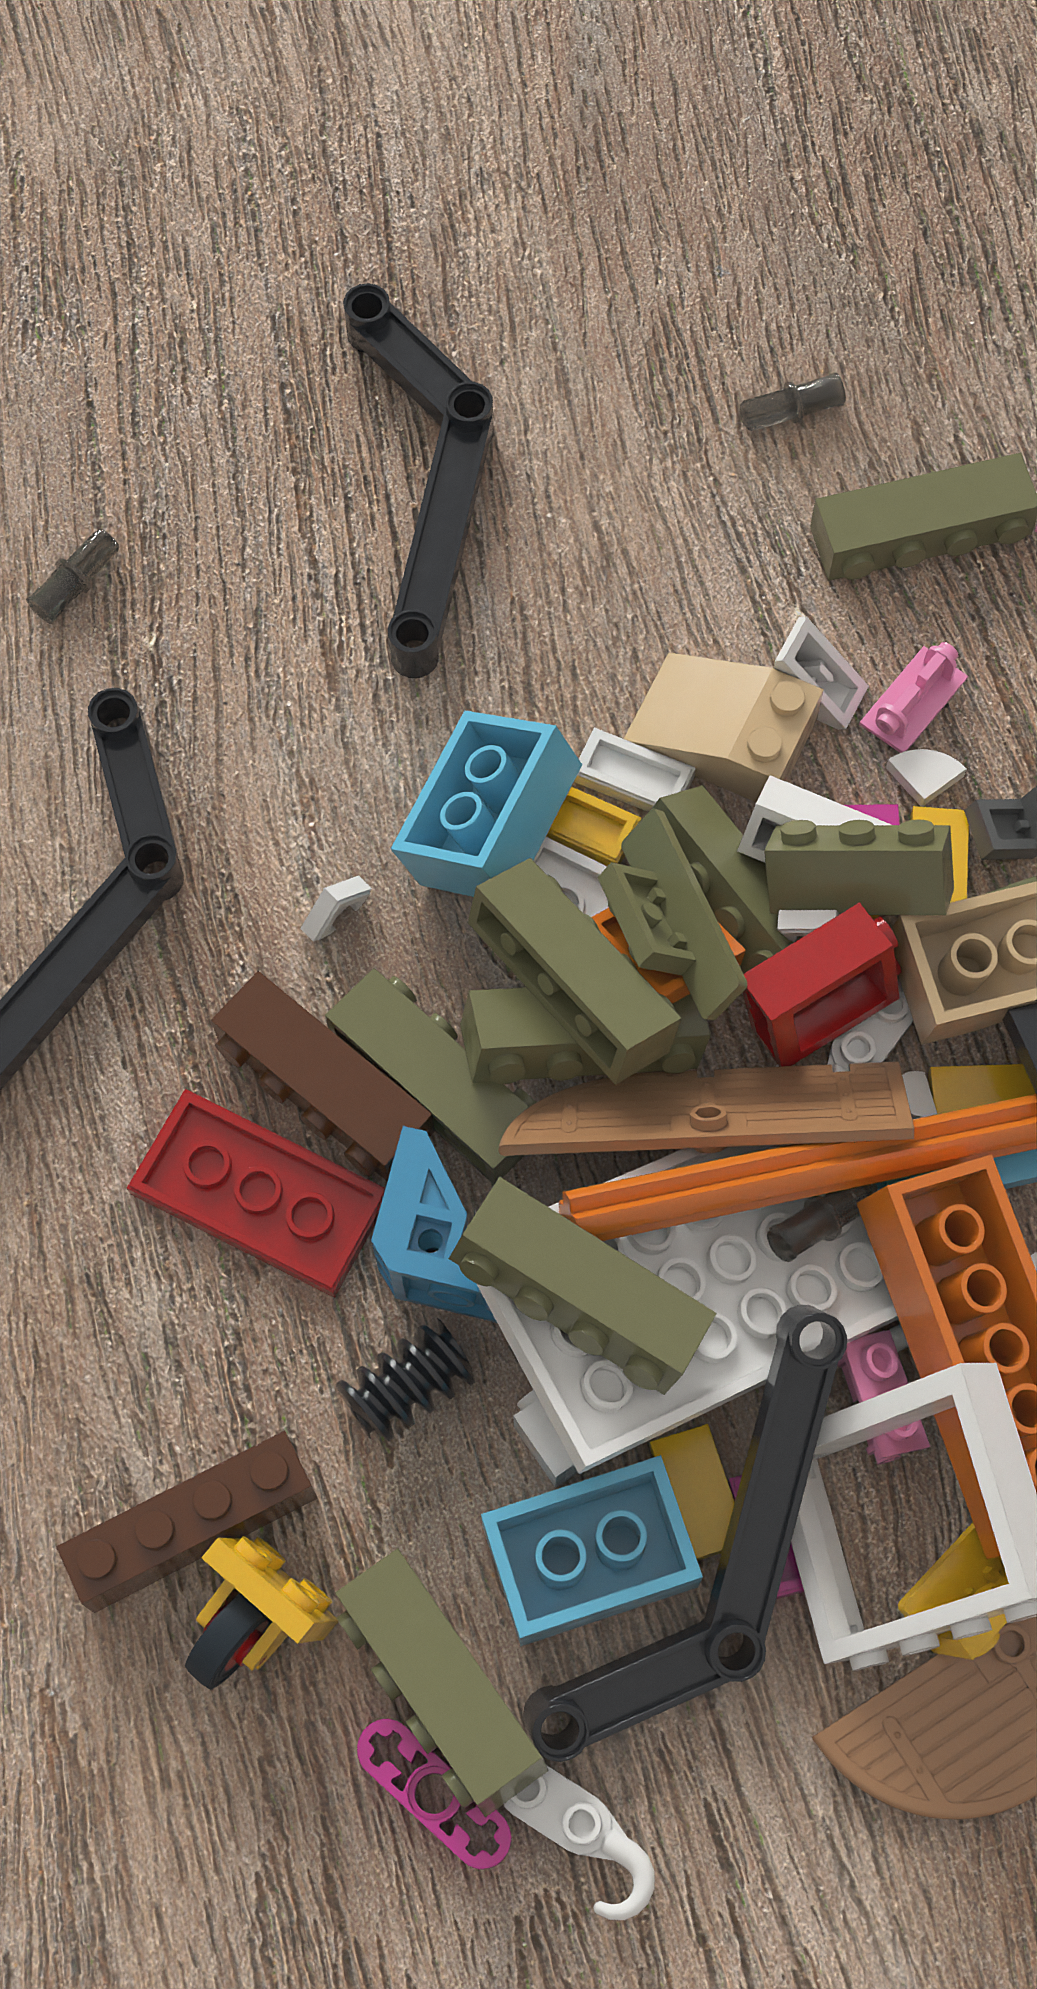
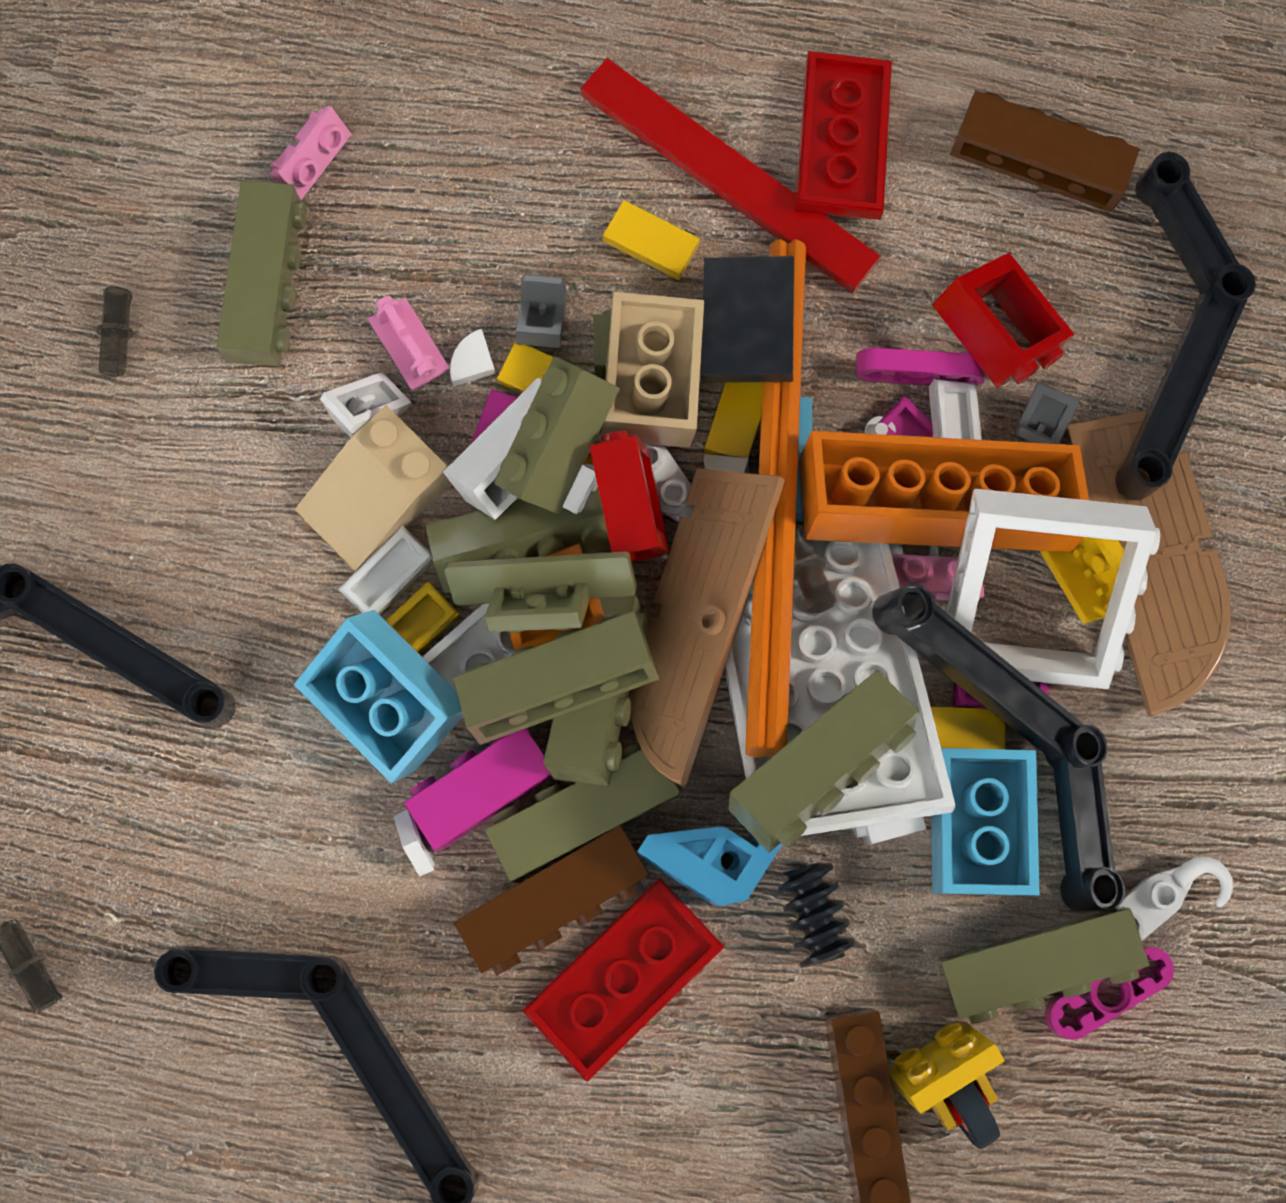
camera: 75 degrees left, 10 degrees up
(423, 949) = (477, 788): none -> dark pink brick

